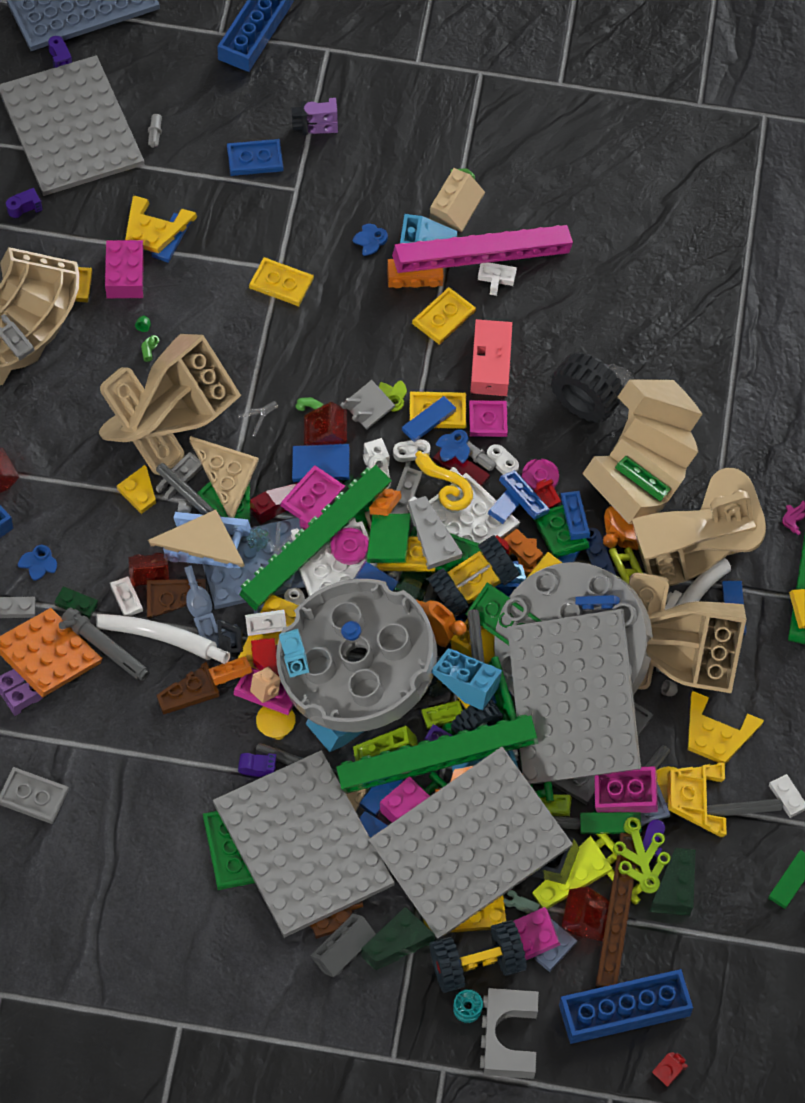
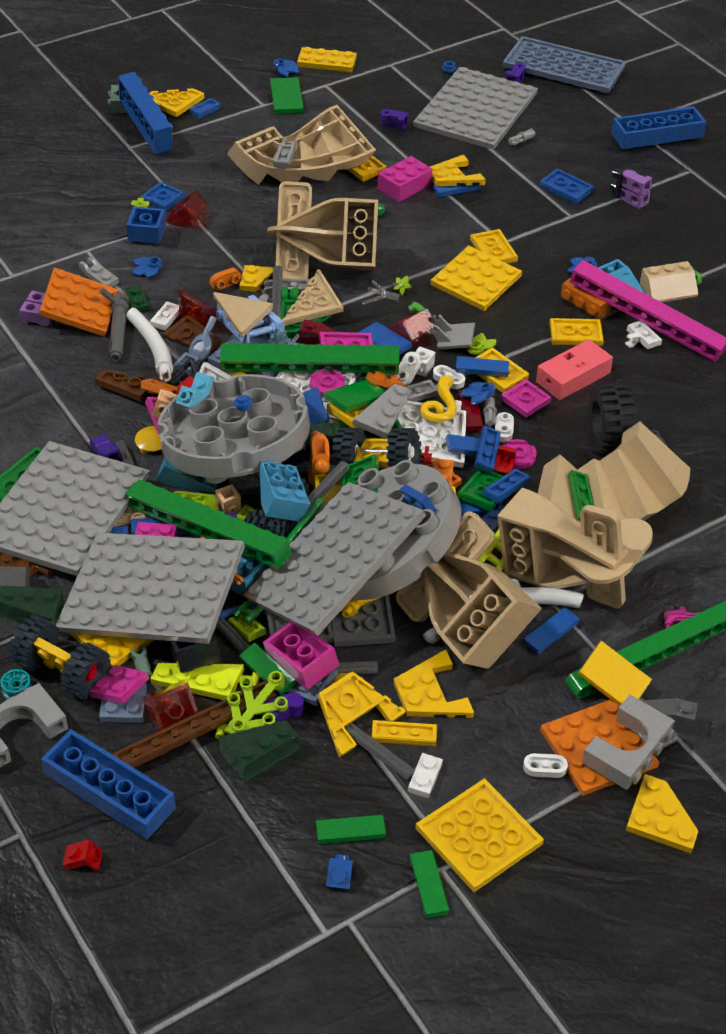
camera: 50 degrees right, 15 degrees down
(122, 522) = (225, 279): none -> orange plate
(197, 481) = (294, 293): none -> green wheel
(264, 389) = (402, 284): none -> lime plant
(309, 328) = (476, 278): none -> yellow plate
(413, 720) = (228, 499): none -> light nougat brick
(740, 779) = (404, 733): none -> yellow tile

